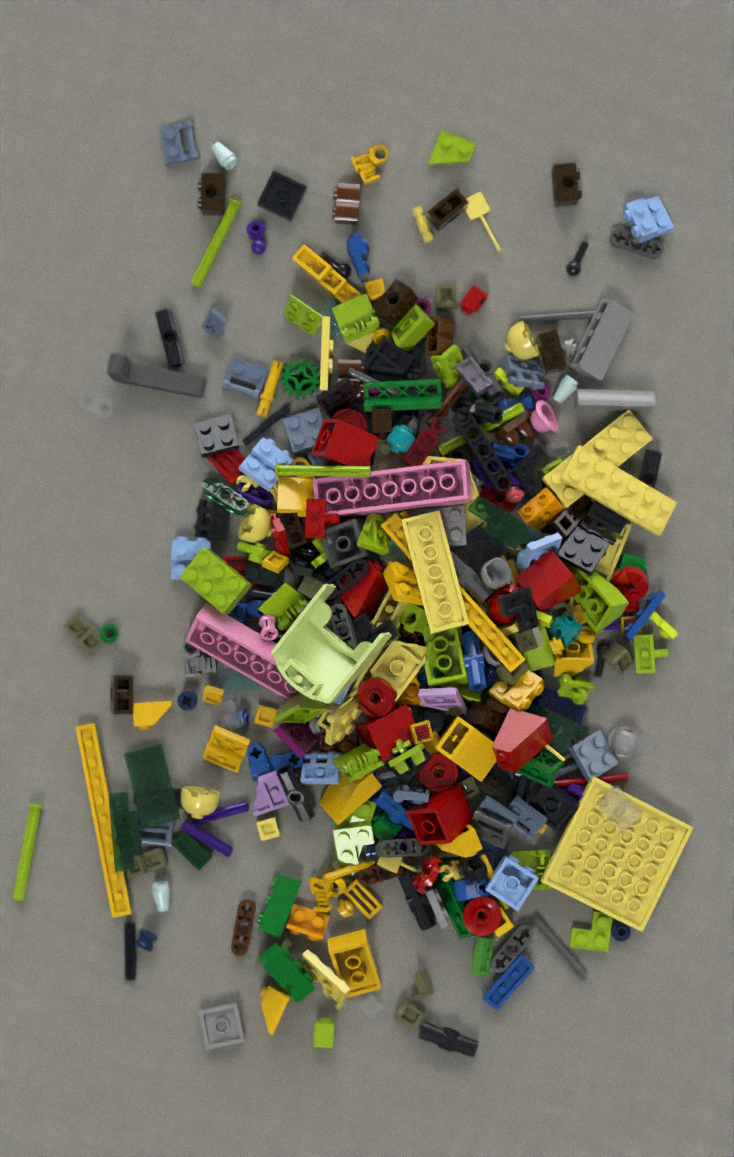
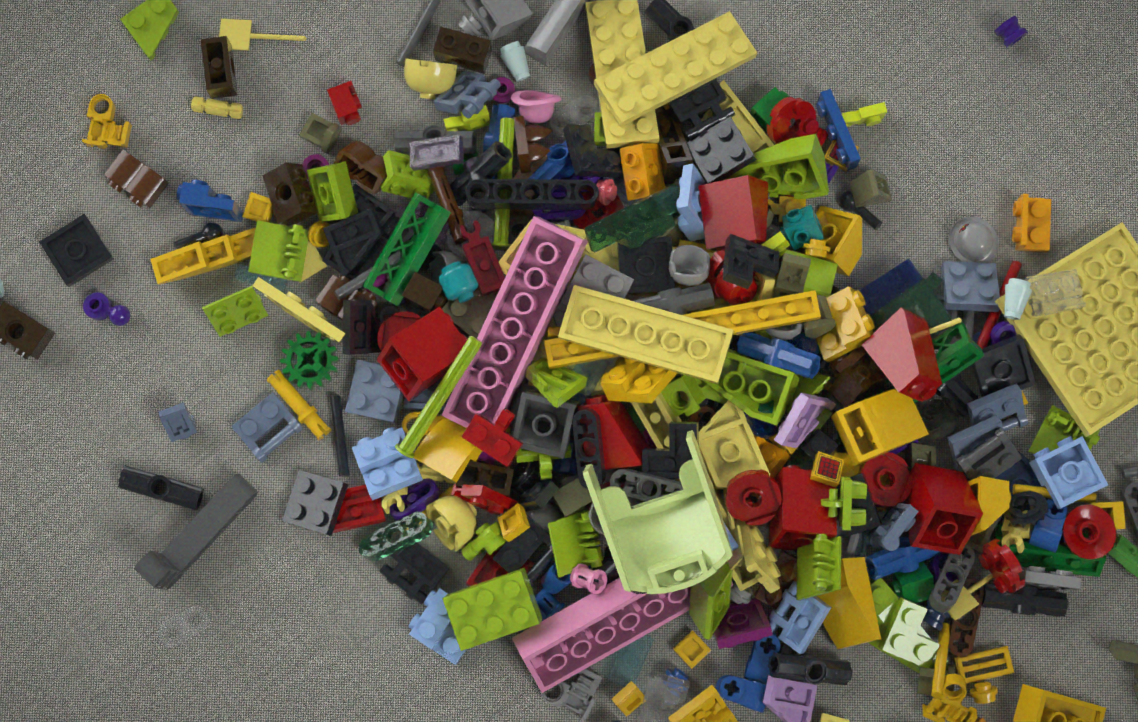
camera: 55 degrees left, 5 degrees down
(216, 242) = (81, 363): lime axle -> none
(575, 689) = (878, 259): lime hips -> none
(587, 635) = (823, 208): yellow tile -> none
(599, 787) = (1016, 297): none -> light aqua cone
(645, 654) = (885, 155): lime plate -> none
(658, 772) = (1032, 224): none -> light orange bracket

